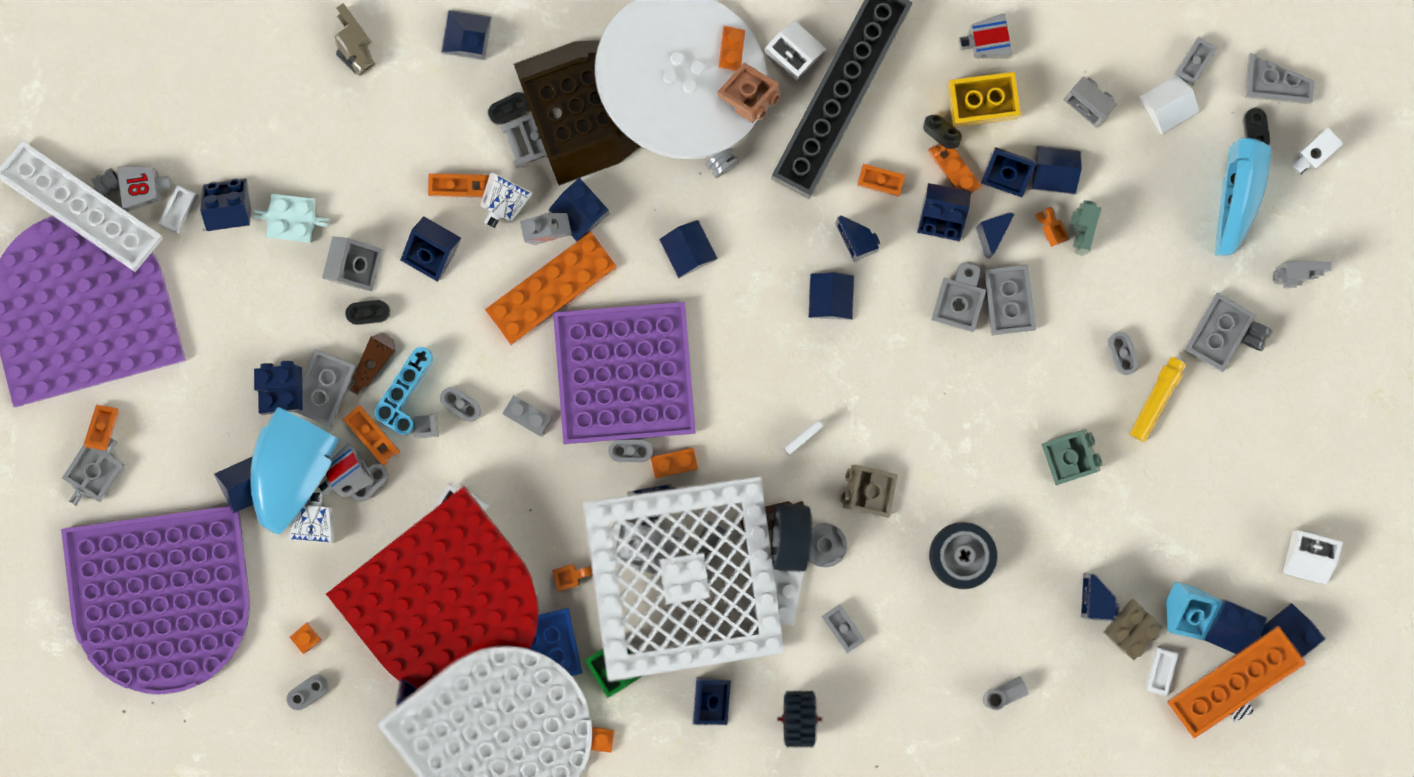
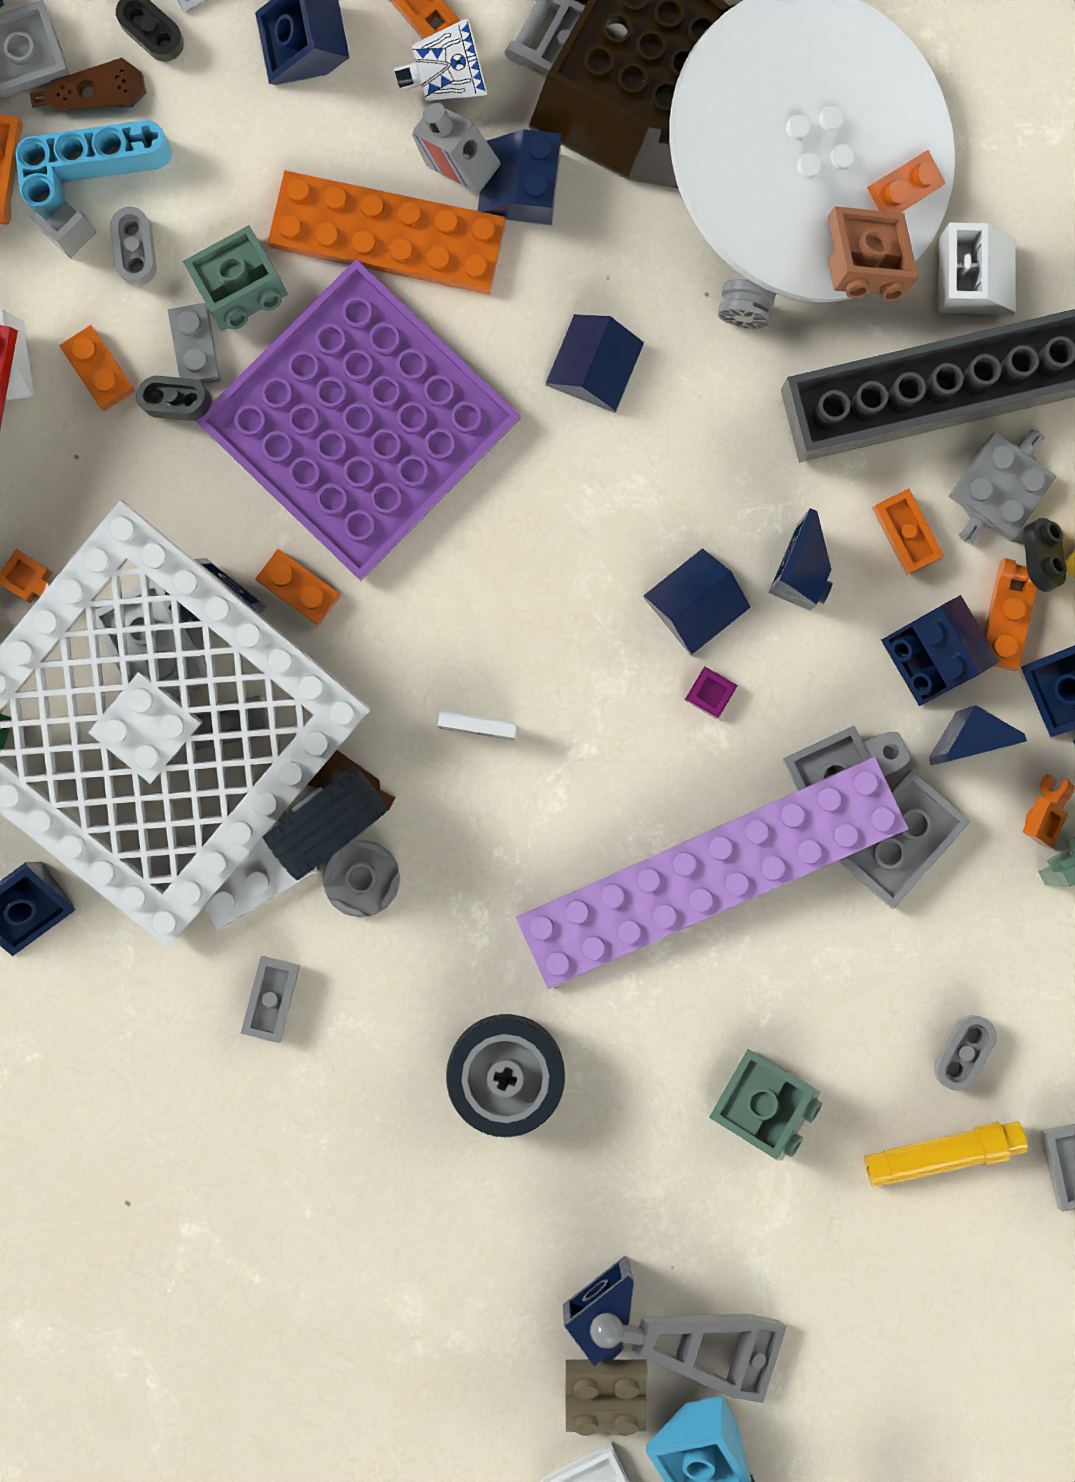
camera: 45 degrees right, 0 degrees up
(500, 466) = (97, 368): none -> orange plate
(515, 372) = (236, 279): none -> sand green plate
(546, 444) = (177, 398): none -> pearl dark grey plate
(630, 450) = (264, 517): light grey plate -> none
(799, 718) = (92, 1047): black wheel -> none
(869, 490) = (483, 873): dark tan plate -> none
(876, 325) = (710, 692): none -> magenta tile
(896, 122) = (1002, 486): none -> light grey plate
(953, 394) = (712, 872): none -> lavender plate
(1007, 693) = (374, 1297): light grey piece -> none
(1171, 555) = (751, 1362): none -> light grey plate

